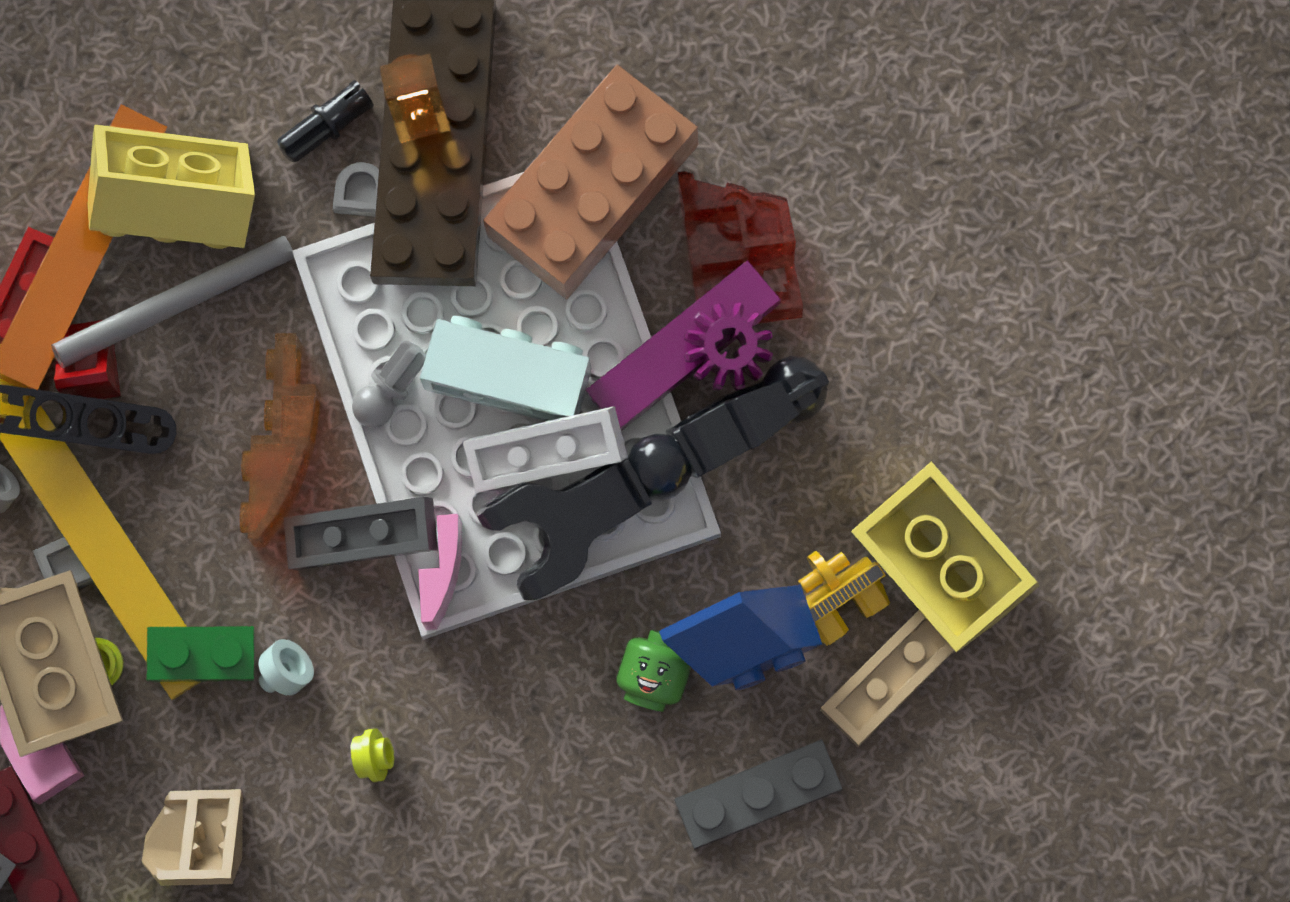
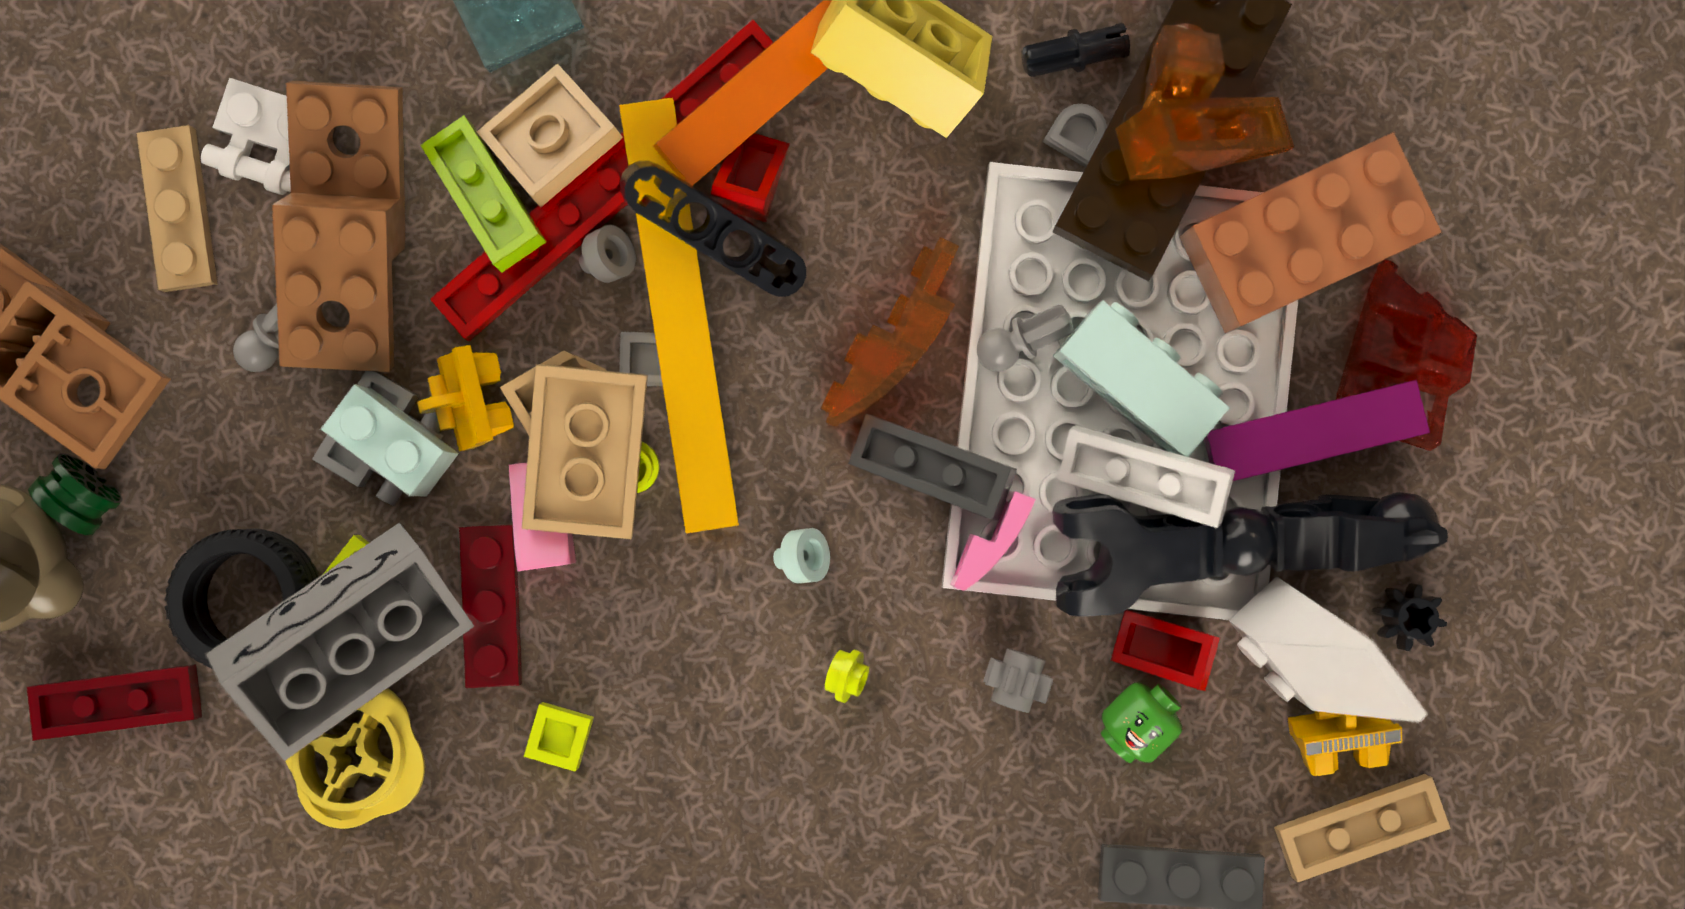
camera: 15 degrees right, 10 degrees up
(172, 301) = (855, 158): light grey piece -> none
(196, 838) = (649, 675): tan slope -> none
(200, 654) = (732, 507): green plate -> none
(457, 141) = (1201, 134): none -> clear orange slope
(526, 685) = (1018, 680): none -> light grey gear
(642, 597) = (1165, 649): none -> red slope
(742, 358) = (1365, 438): magenta gear -> none
(746, 636) = (1250, 743): blue slope -> none
(767, 533) = (1320, 657): none -> white slope
(851, 480) = (1395, 614): none -> black gear
(945, 557) = (1471, 754): light yellow slope -> none

